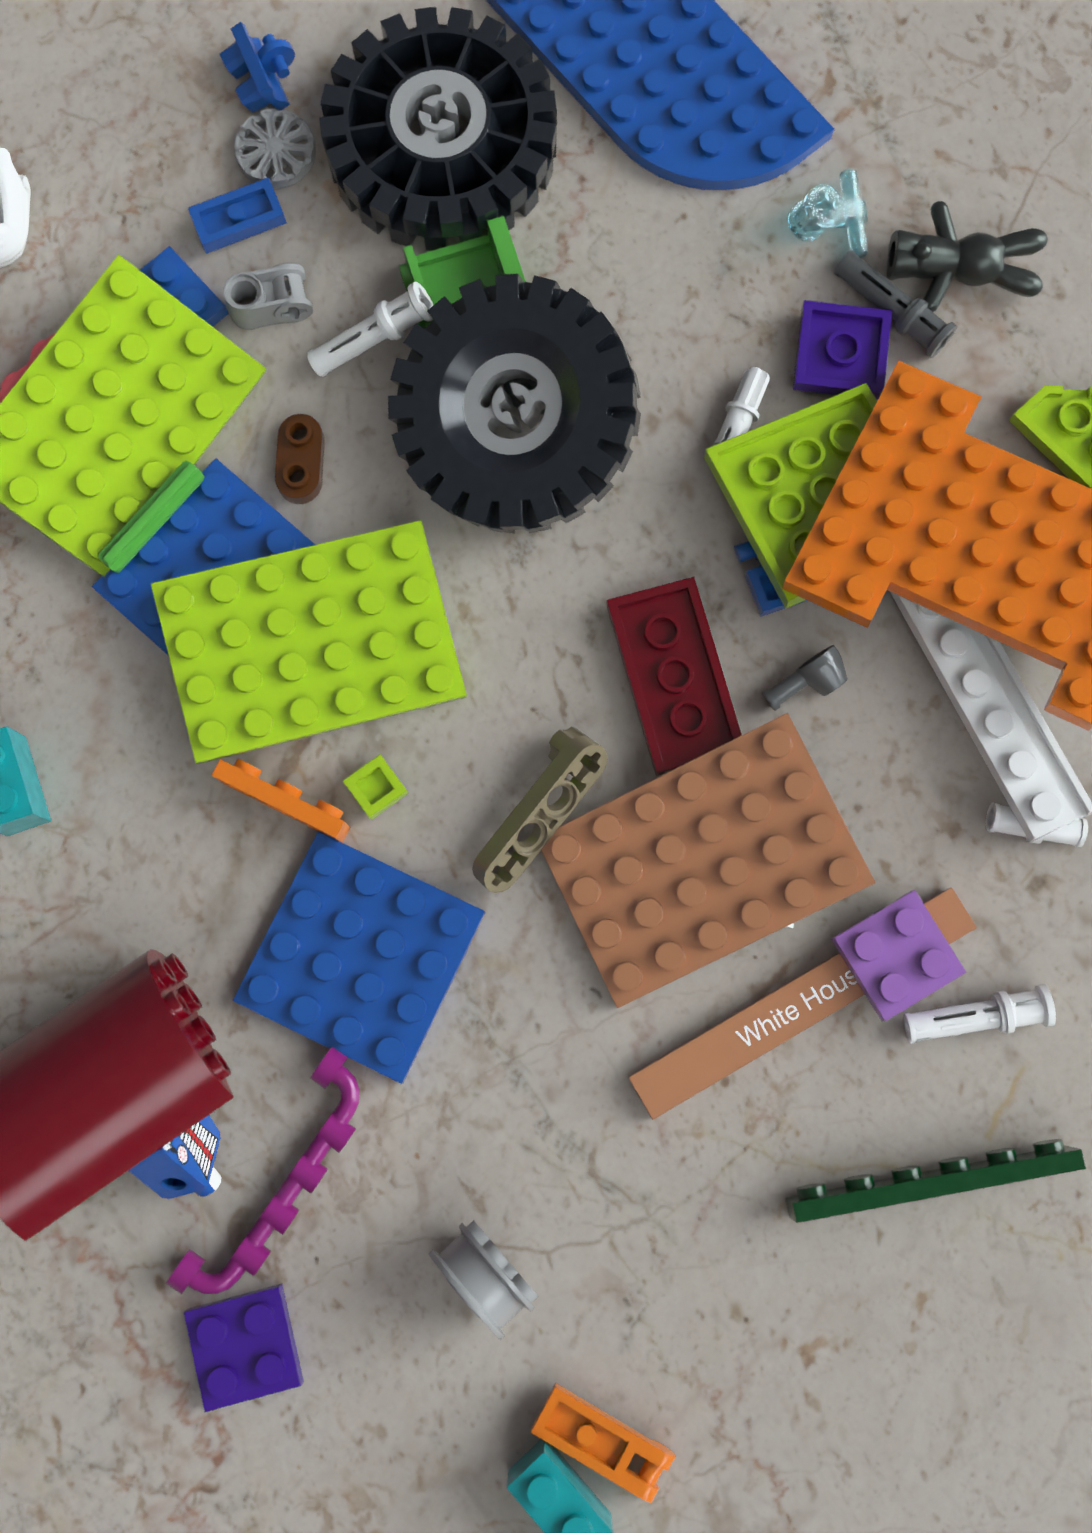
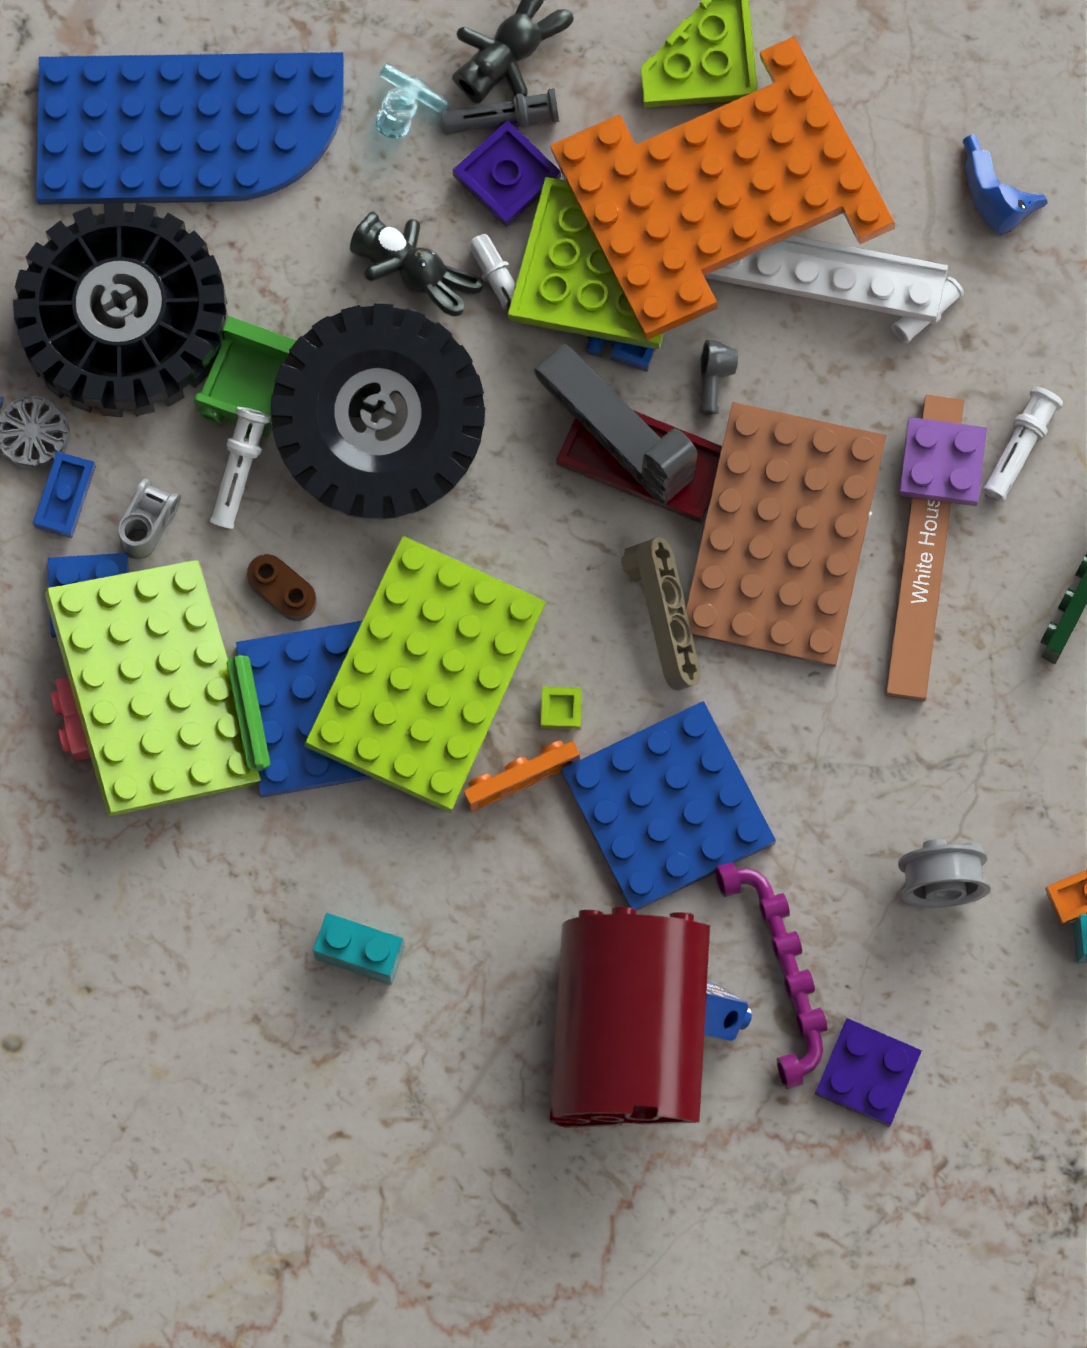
camera: 55 degrees left, 5 degrees down
(672, 678) = (656, 463): none -> dark grey beam
(688, 342) = (419, 267): none -> pearl dark grey animal

